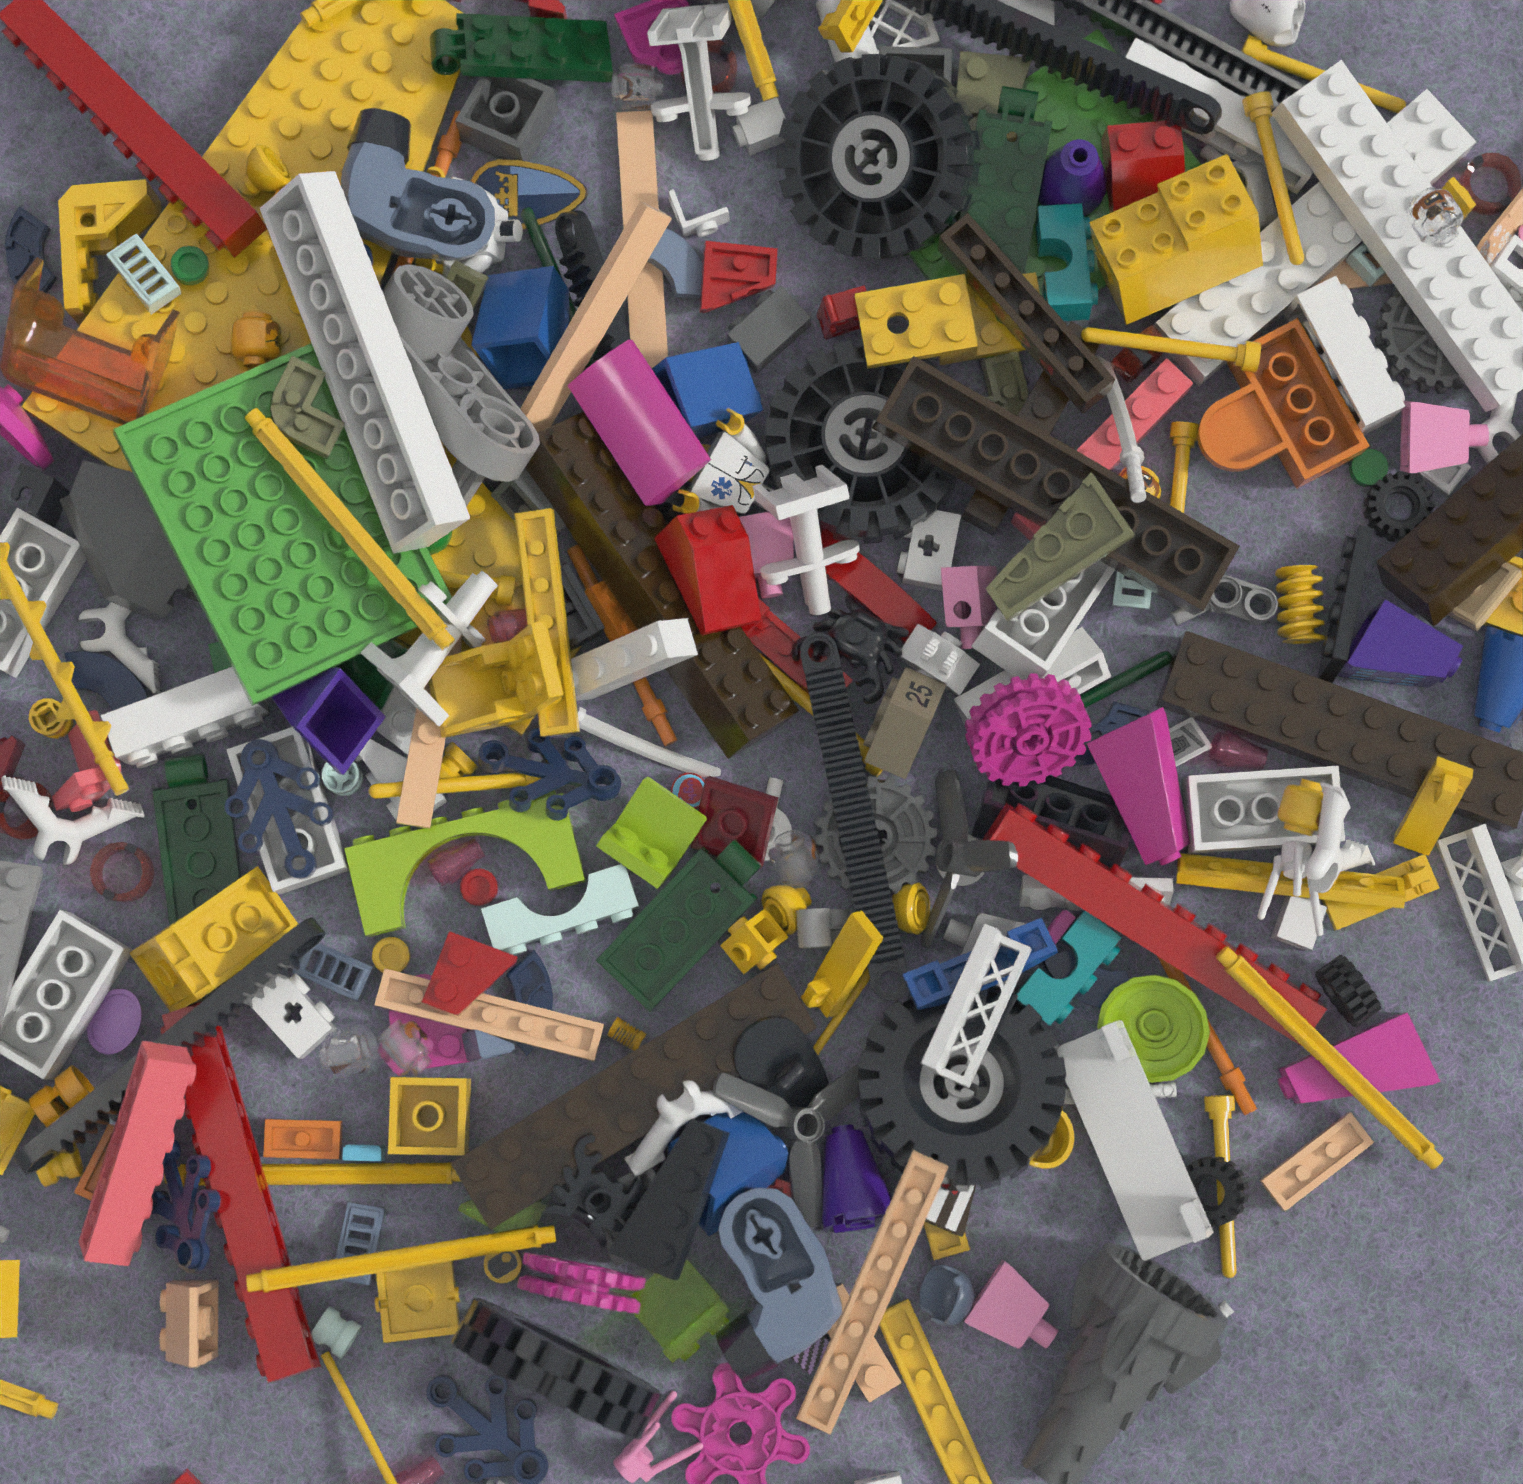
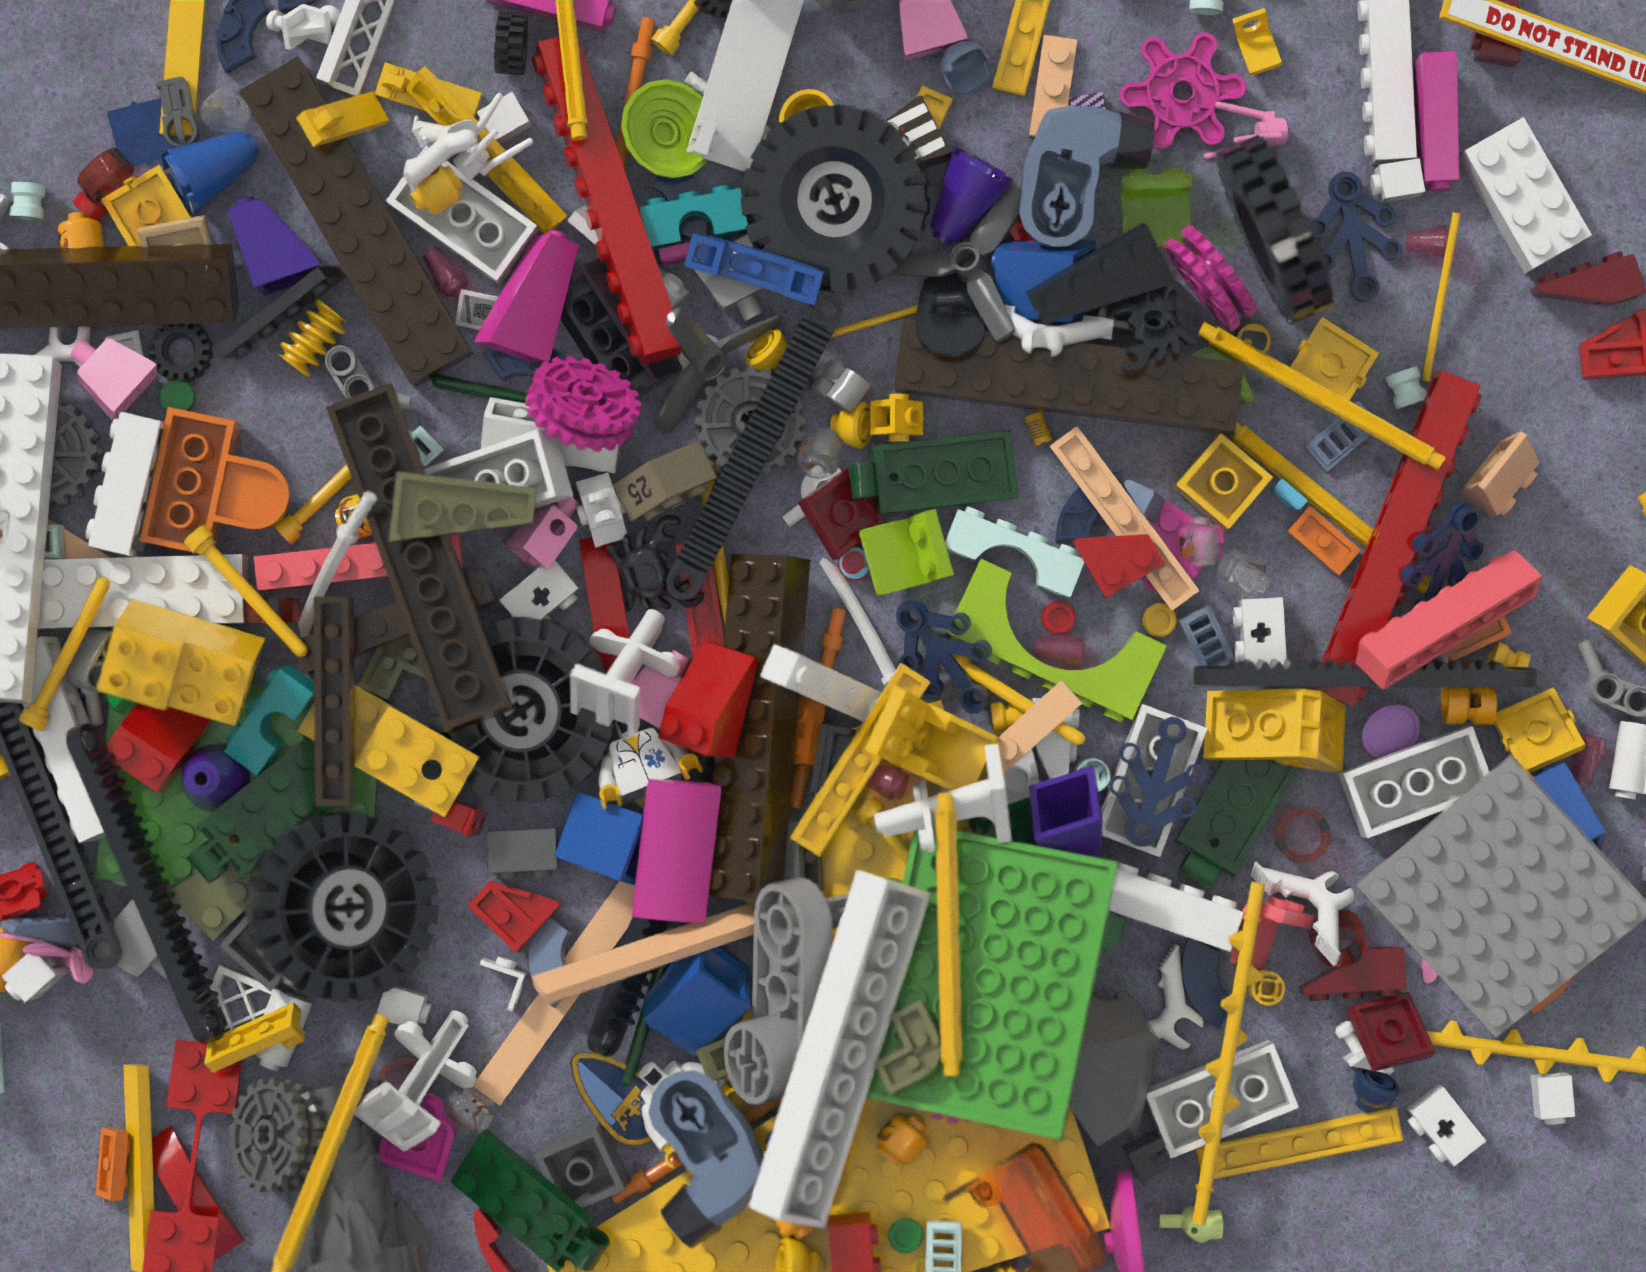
camera: 145 degrees left, 5 degrees up
(843, 965) = (849, 348): yellow hinge -> none
(872, 1291) = (1014, 108): light nougat tile -> none
(963, 1000) = (787, 251): white fence -> none

